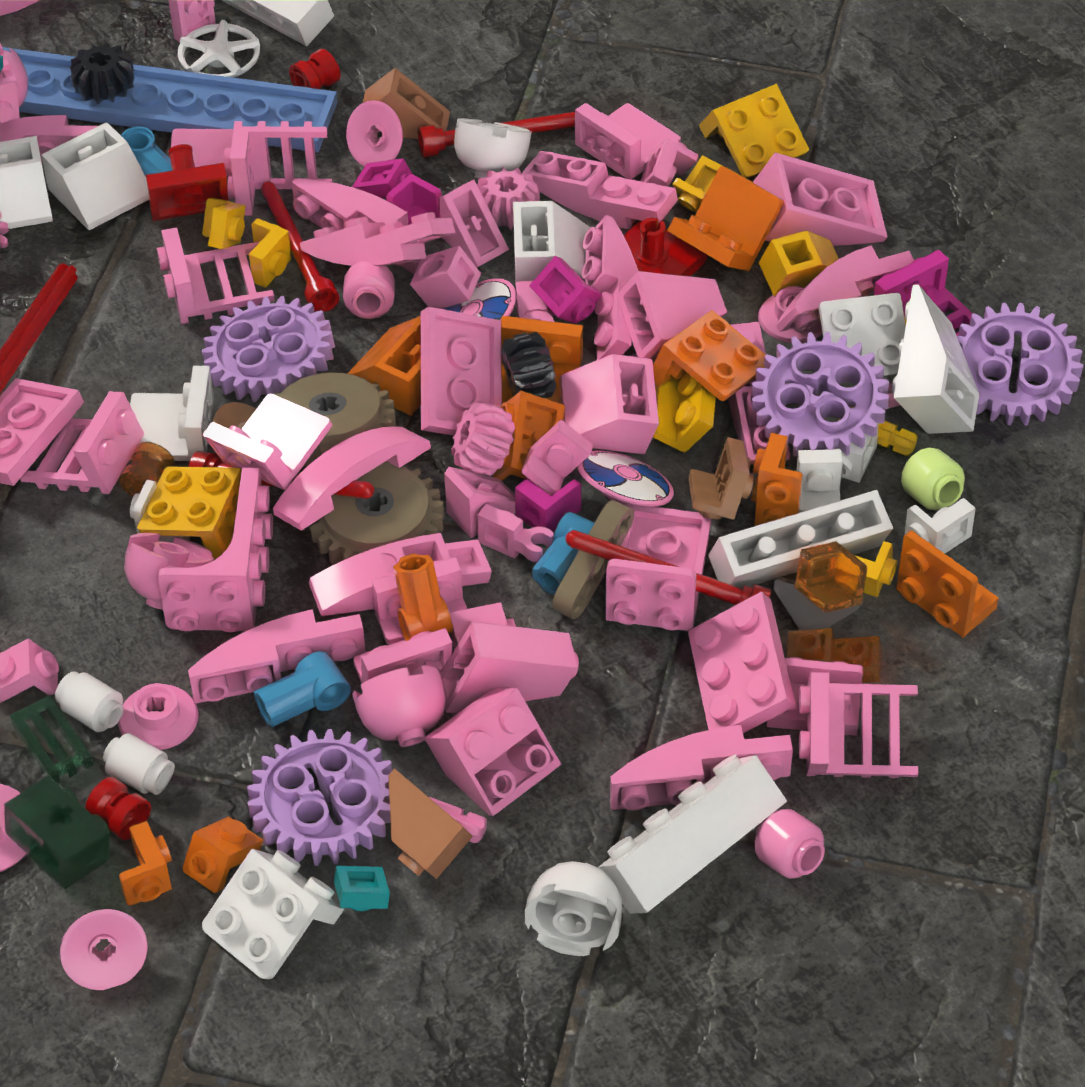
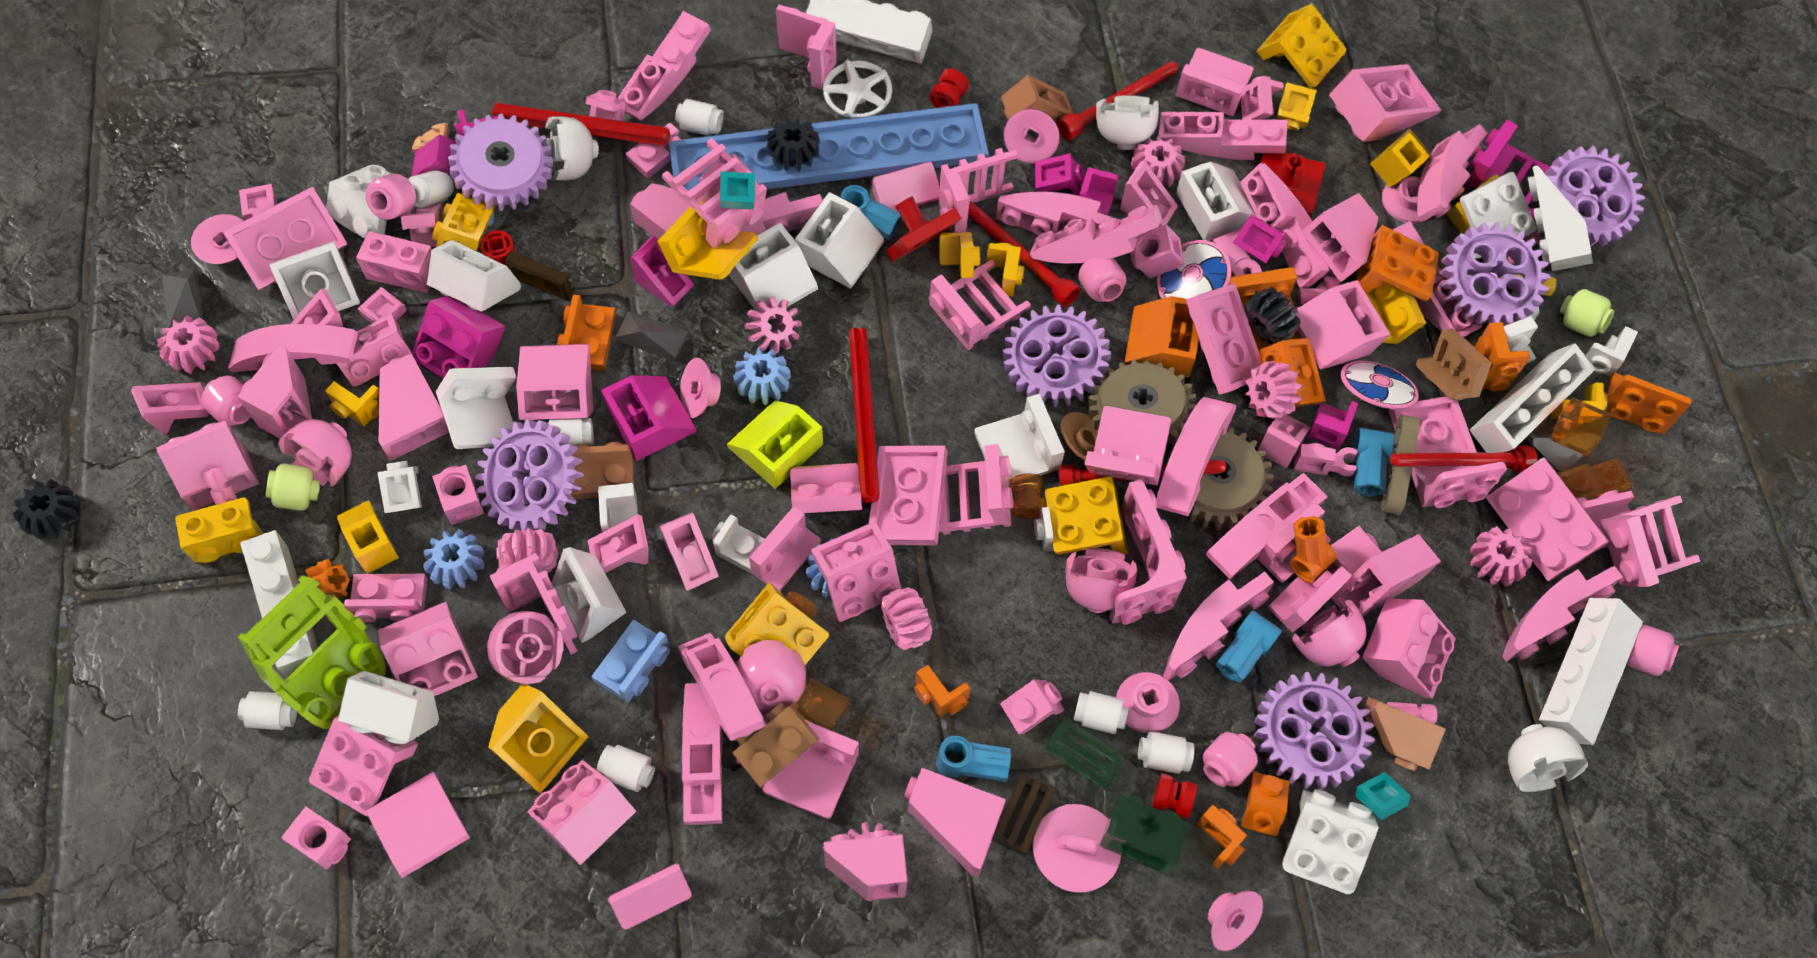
camera: 25 degrees left, 15 degrees up
(28, 31) = (699, 117): none -> white brick
(204, 791) = (1230, 759): none -> bright pink head
(556, 457) = (1331, 386): bright pink bracket -> none
(664, 692) = (1501, 556): none -> bright pink gear
(730, 220) = (1338, 134): orange bracket -> none

